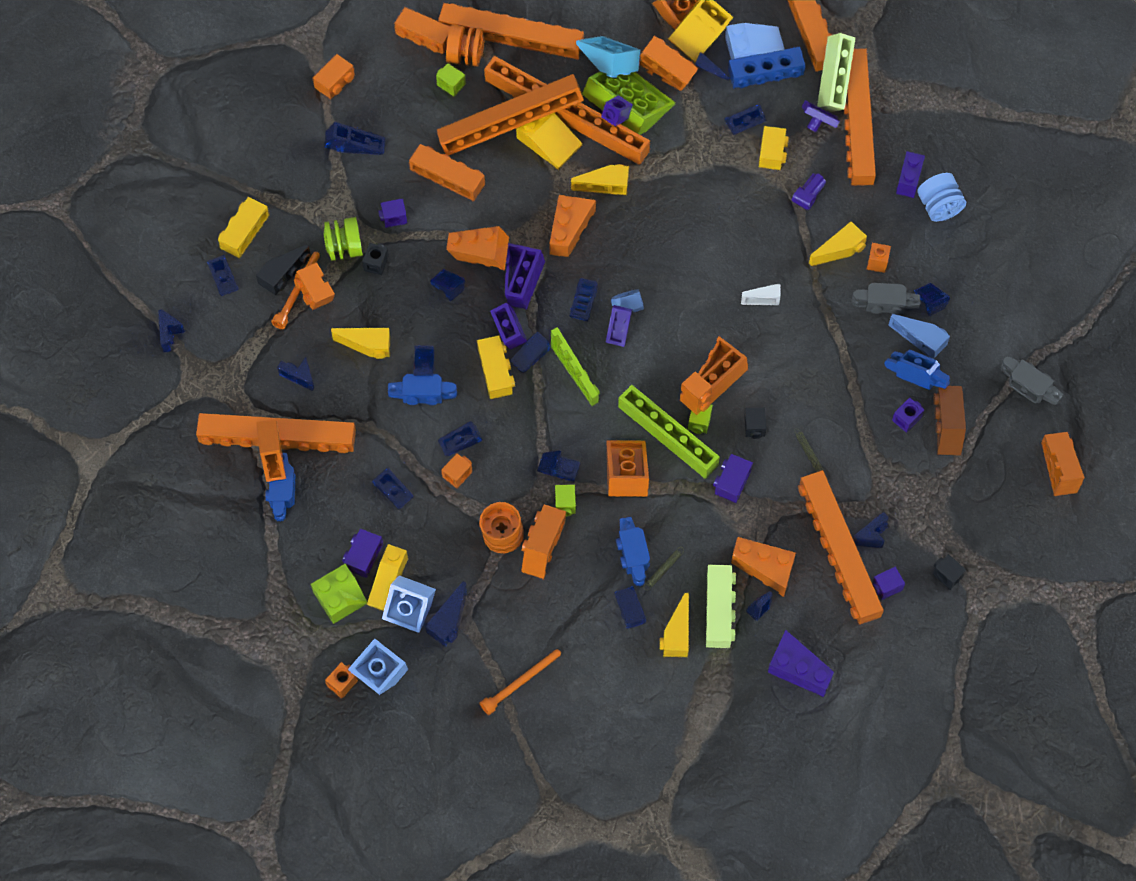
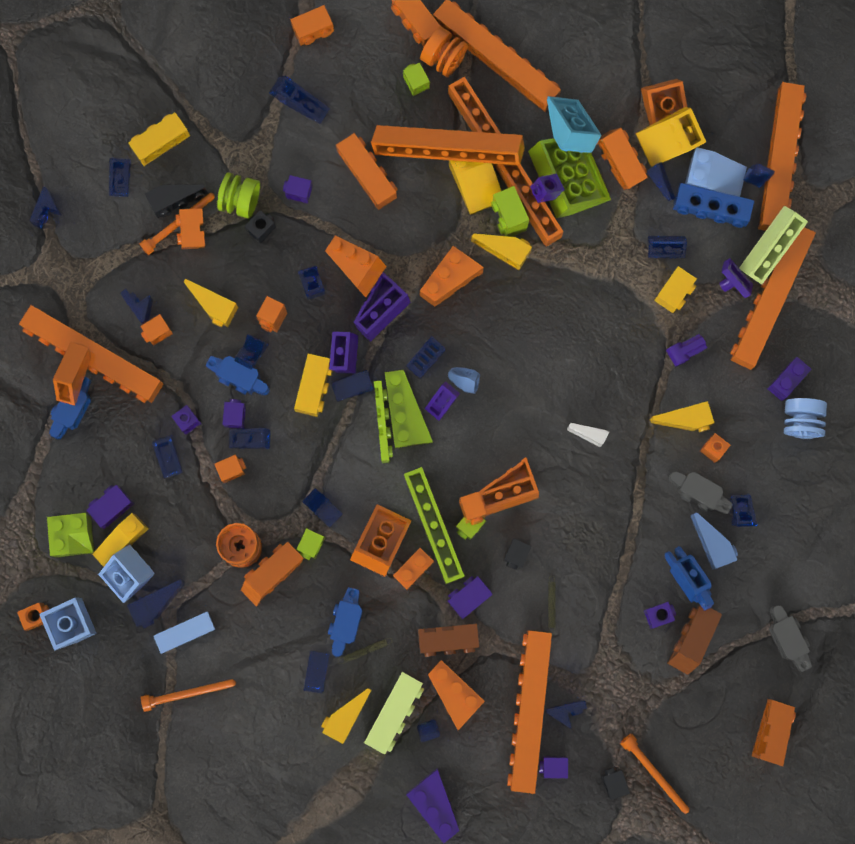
camera: 25 degrees right, 15 degrees up
(326, 385) = (155, 330): none -> orange brick
(394, 447) = (186, 419): none -> dark purple brick
(426, 323) = (271, 315): none -> orange brick
(436, 423) = (234, 414): none -> dark purple brick
(489, 630) = (184, 632): none -> light blue tile
(593, 356) = (406, 417): none -> lime wing
(596, 144) = (512, 214): none -> lime slope
(670, 477) = (413, 569): none -> orange brick
(733, 520) = (448, 639): none -> dark orange wedge
(792, 24) = (758, 175): none -> clear blue slope
(944, 533) = (629, 743): none -> orange piece

